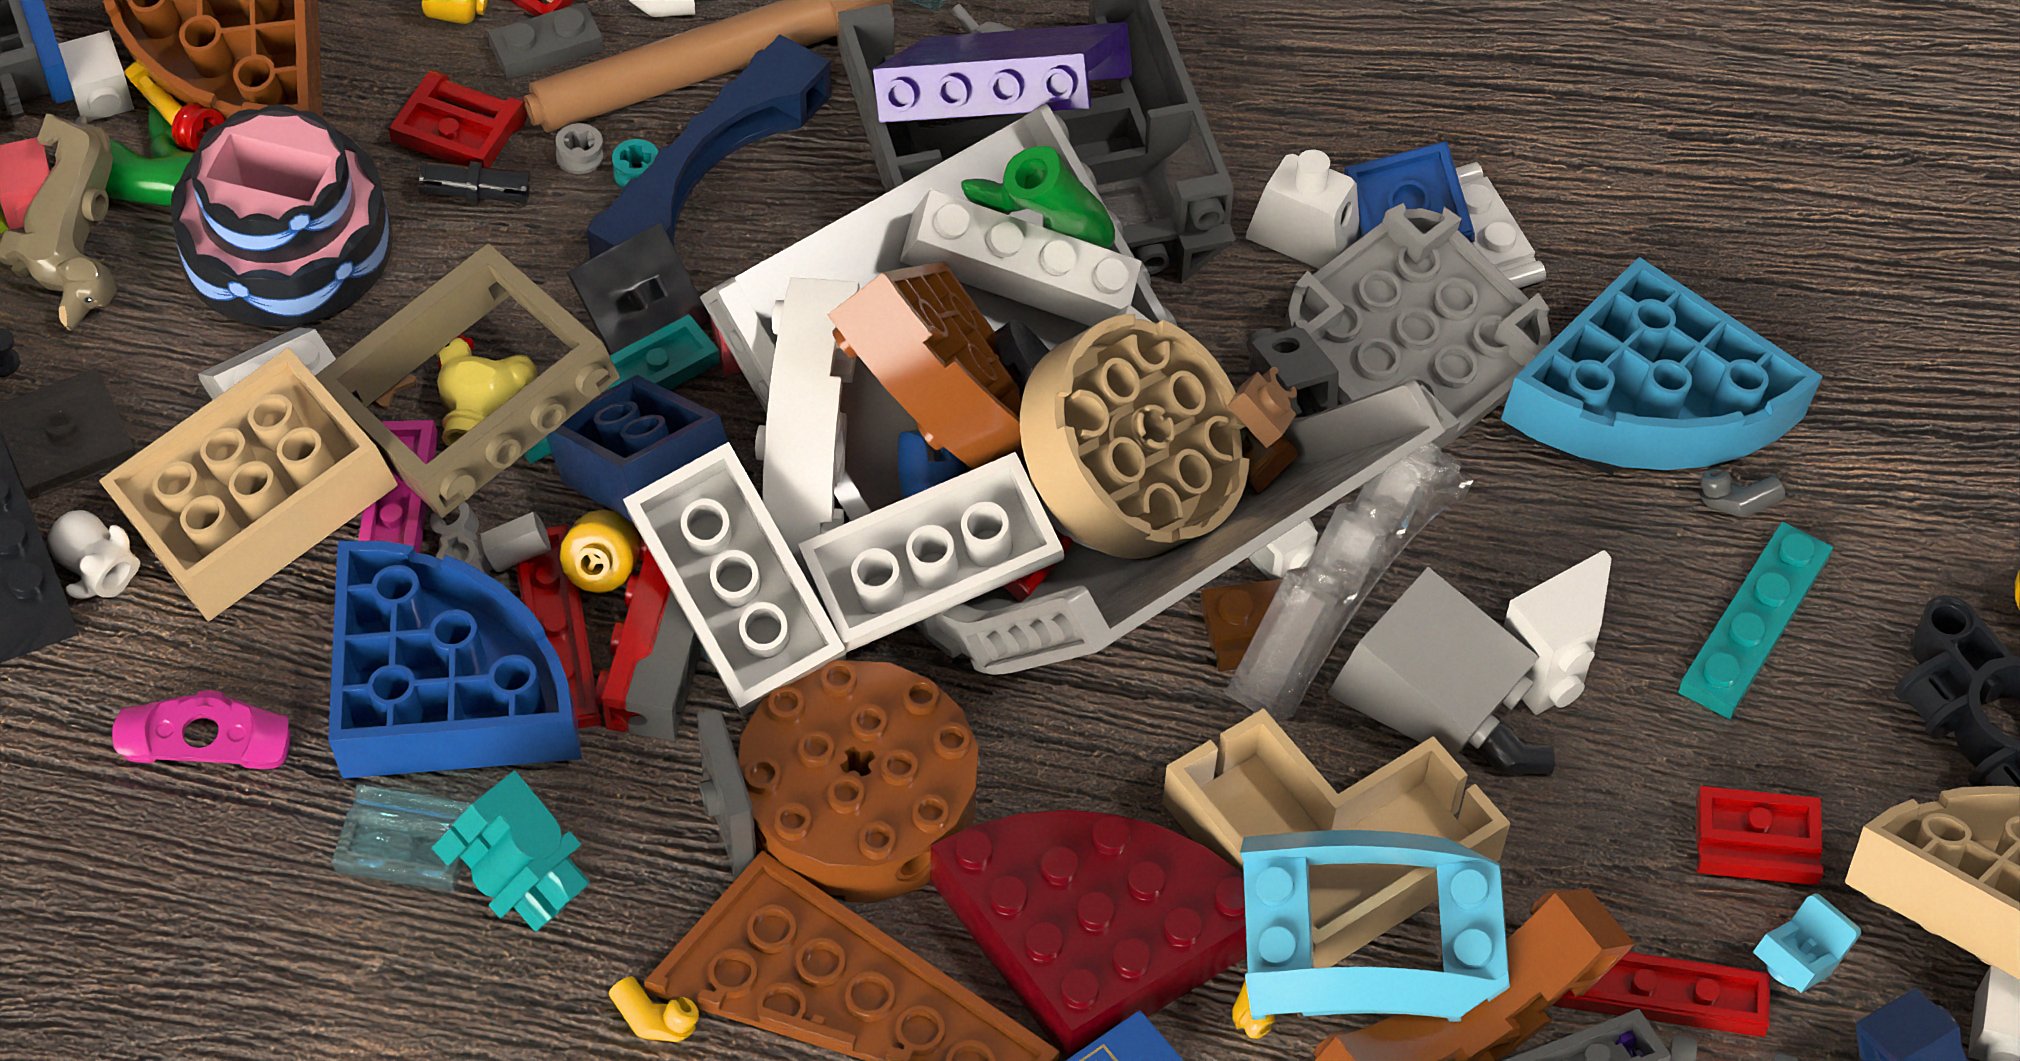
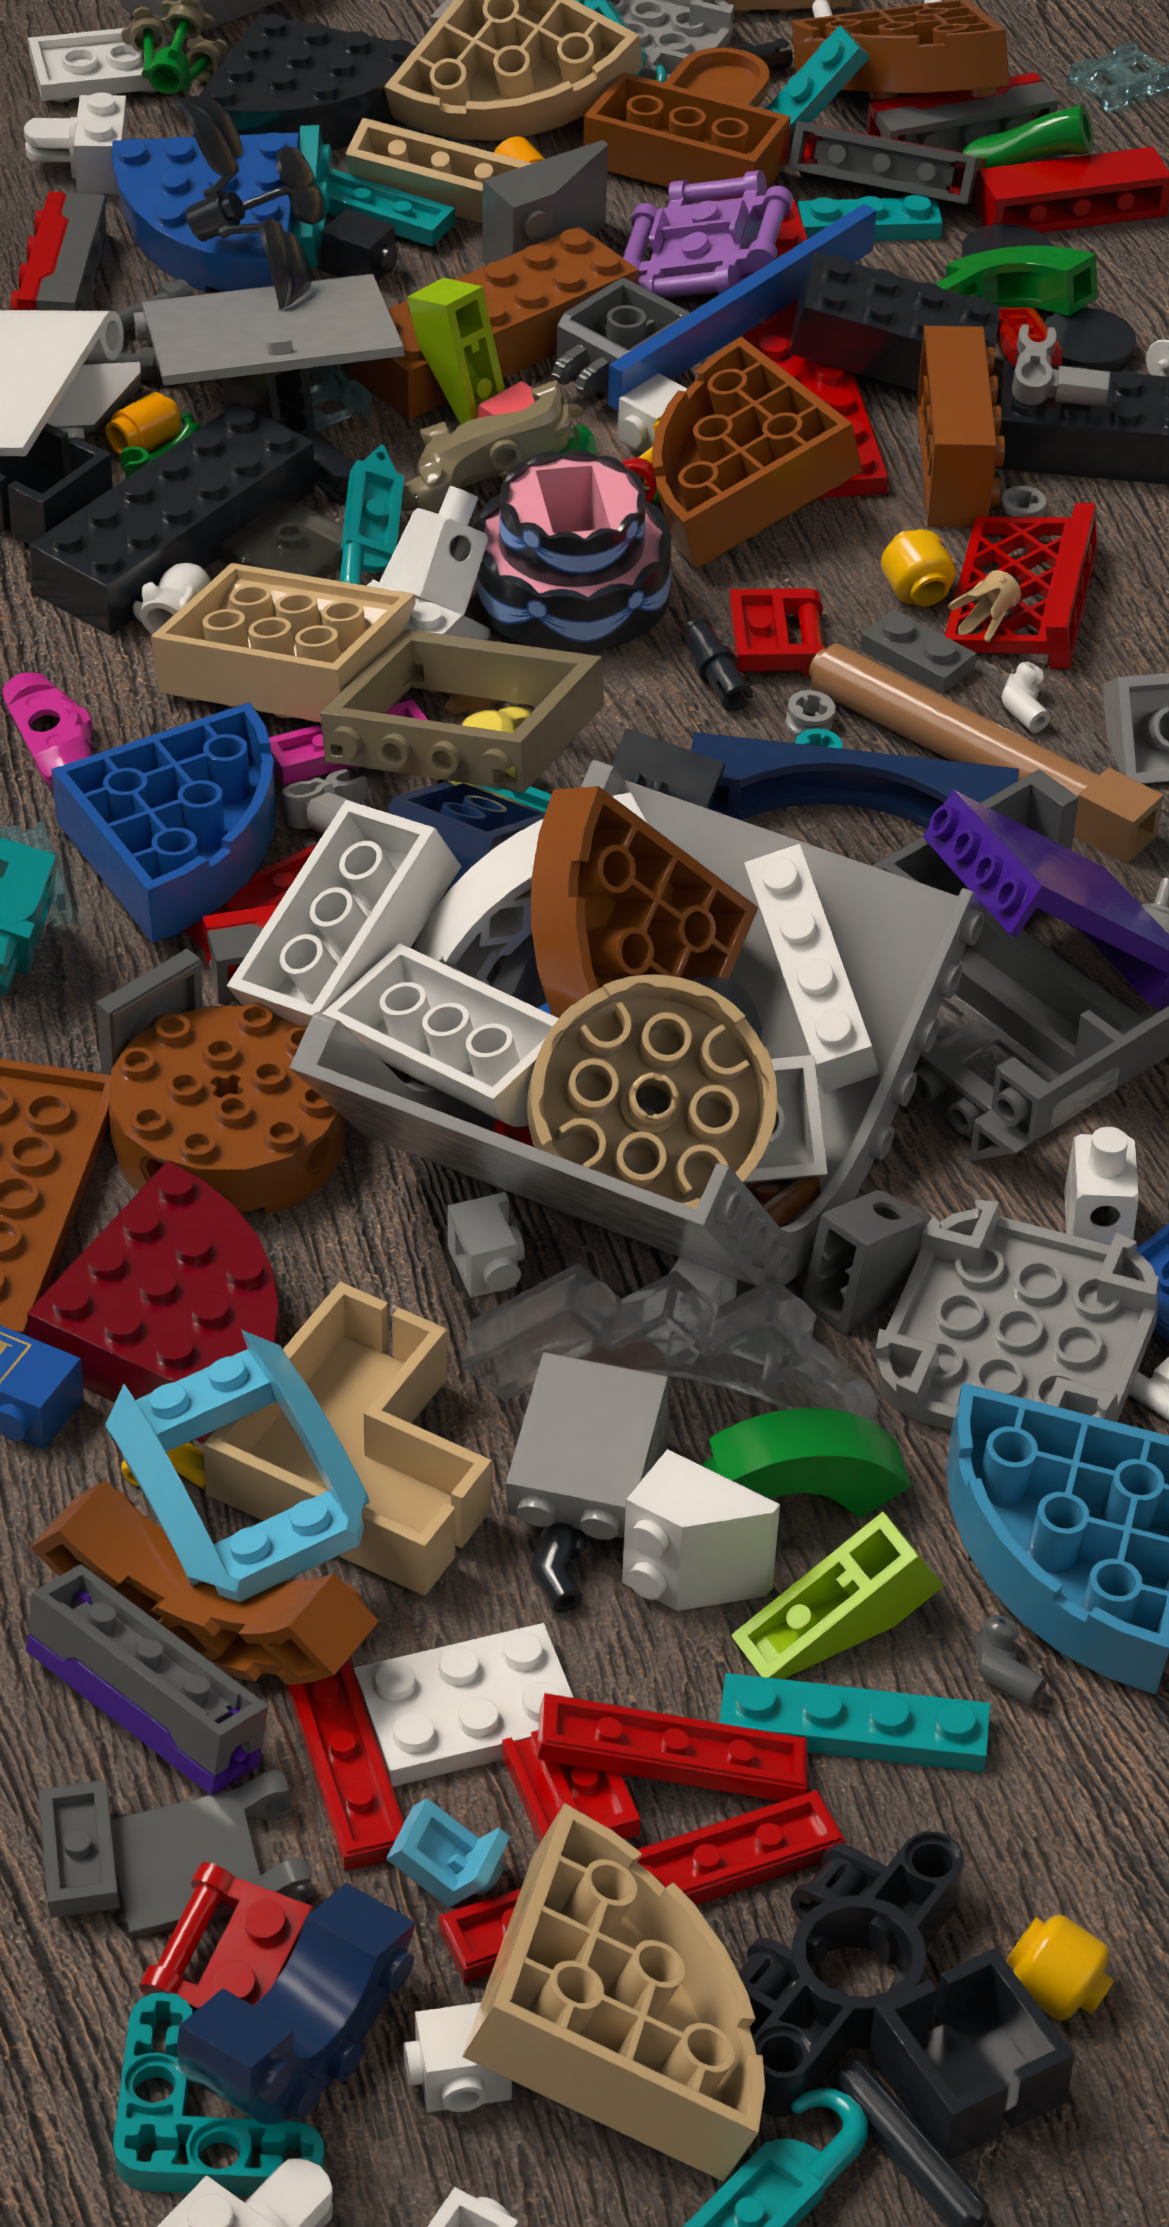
camera: 65 degrees right, 10 degrees down
(104, 351) = (371, 516): none -> teal plate
(221, 312) = (439, 553): none -> white torso
(1044, 184) = (844, 907): green piece -> none
(1135, 659) = (485, 1244): none -> white brick
(1264, 406) = (772, 1186): medium nougat plate -> none
(1507, 537) = (814, 1454): none -> green arch
(1638, 863) = (459, 1701): none -> white plate
(1648, 573) = (840, 1602): none -> lime slope
(1755, 748) = (671, 1748): none -> red tile
(1859, 792) = (700, 1863): none -> red tile

